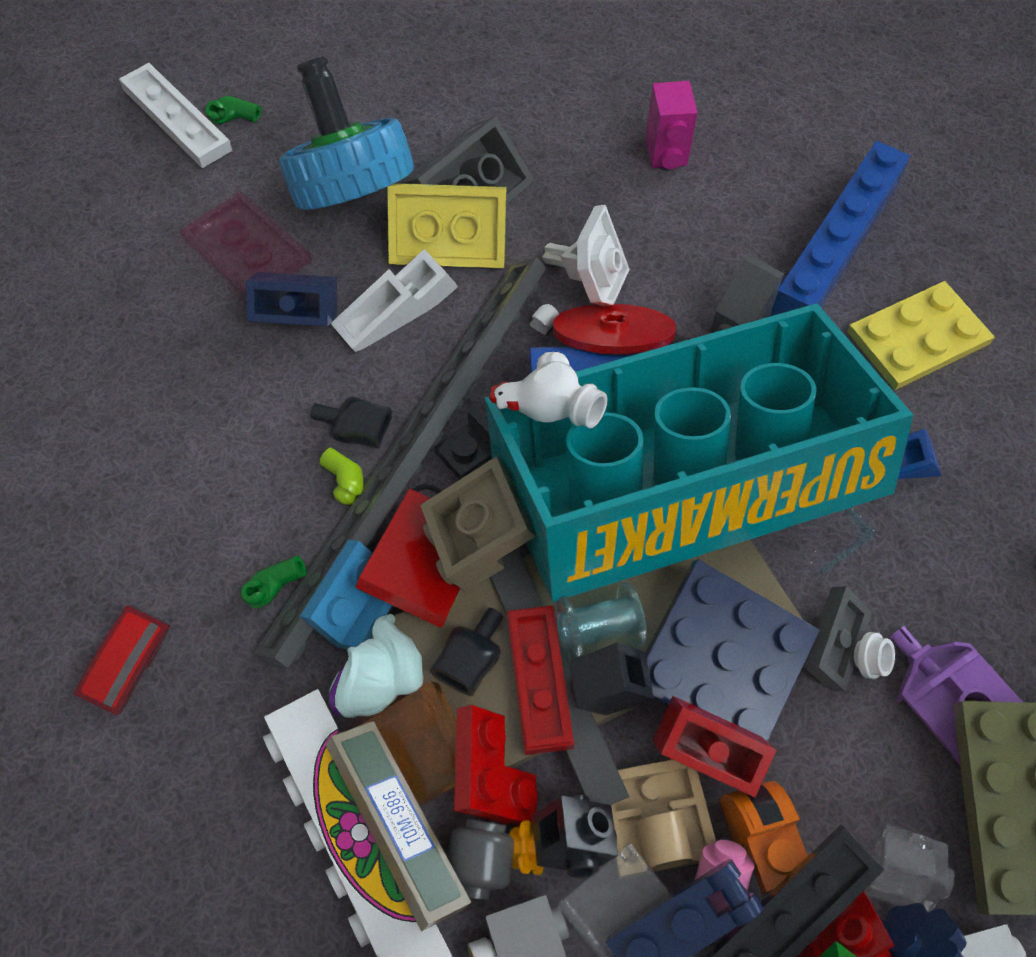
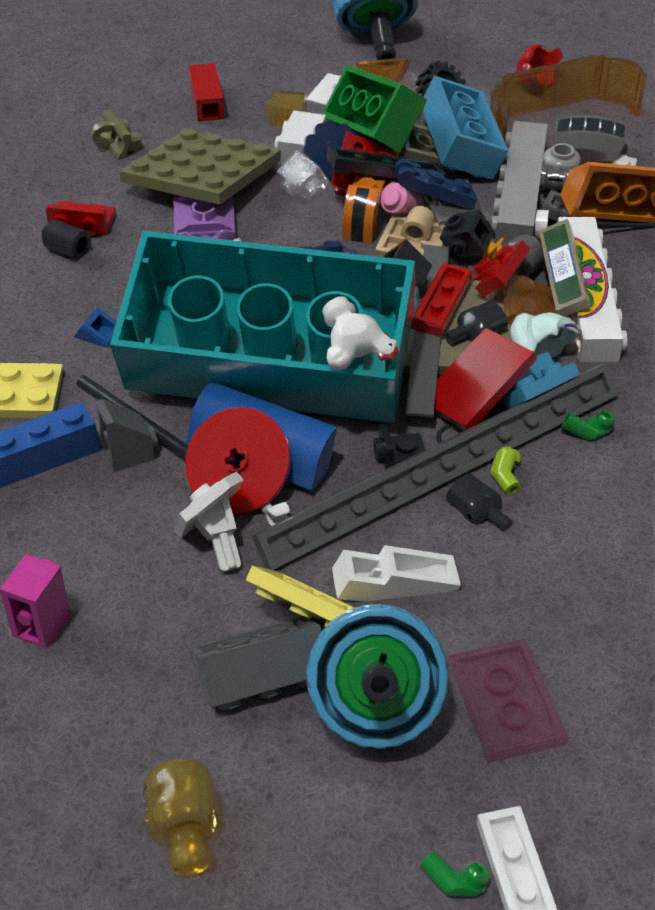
camera: 150 degrees left, 15 degrees down
(291, 299) = (487, 600): dark blue brick -> none
(446, 57) = (181, 812): none -> clear yellow piece
(476, 525) = (440, 346): dark tan plate -> none
(713, 746) = (367, 228): red brick -> none

